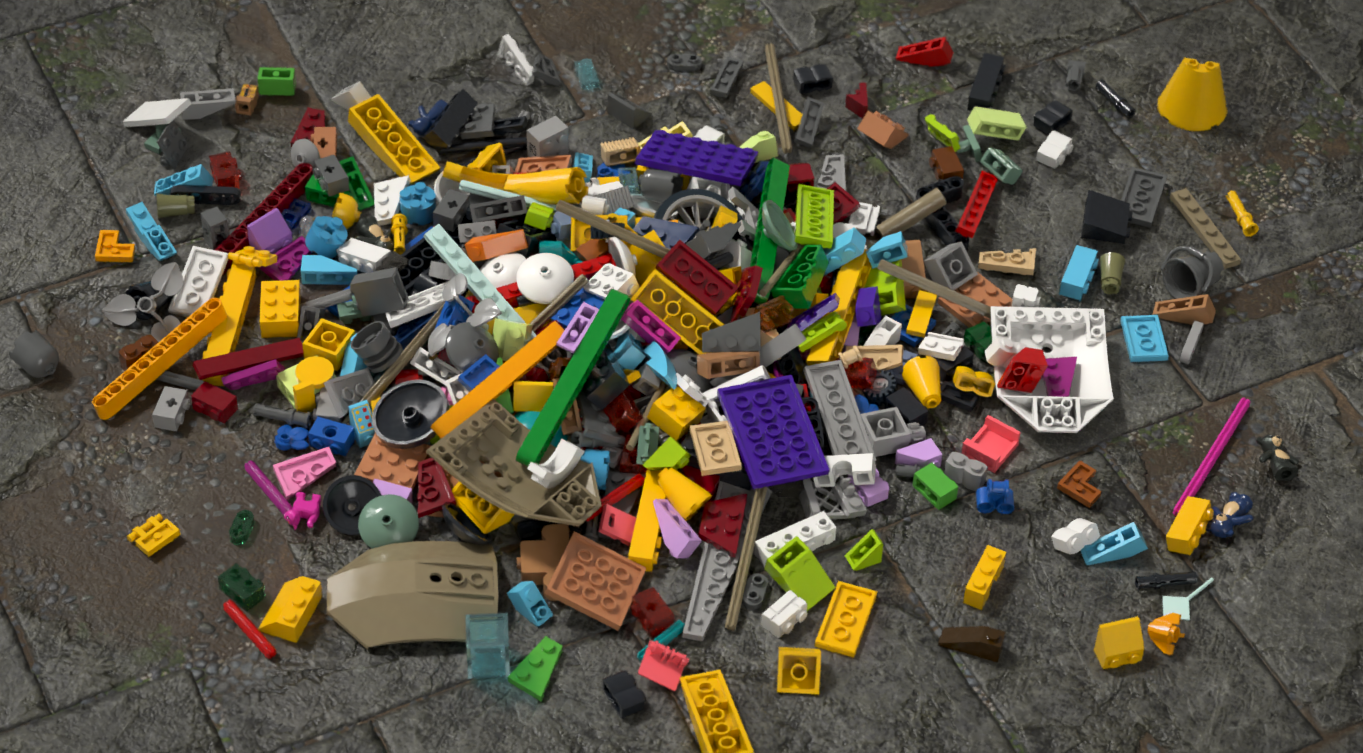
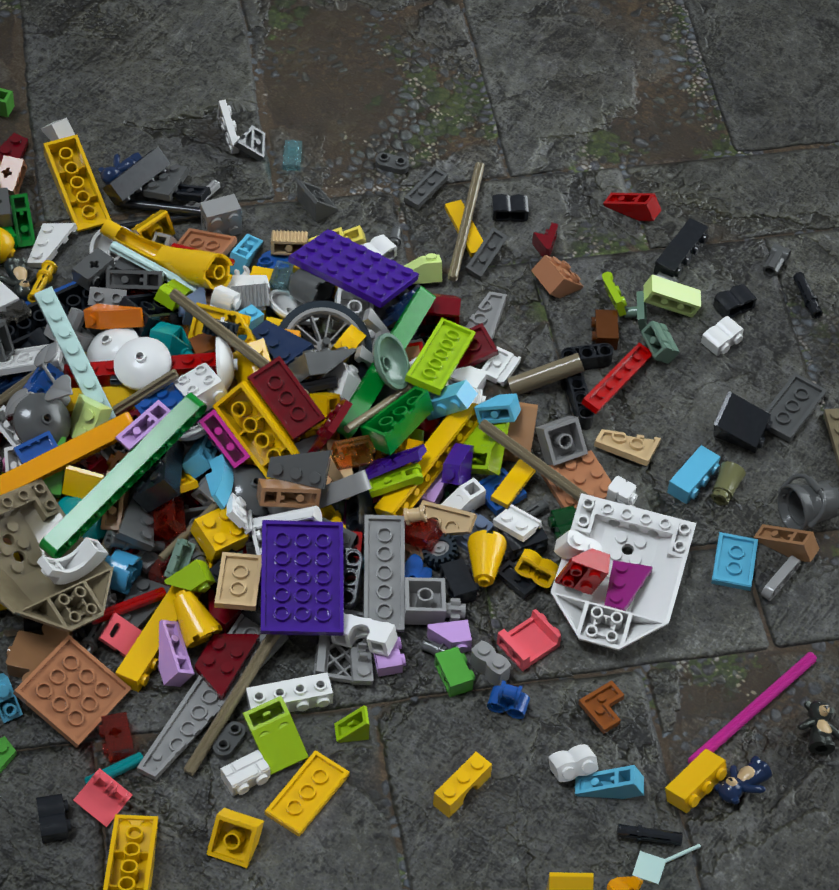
camera: 15 degrees right, 5 degrees up
(418, 203) = (70, 251): dark azure brick -> none
(975, 640) = (424, 851): dark brown slope -> none

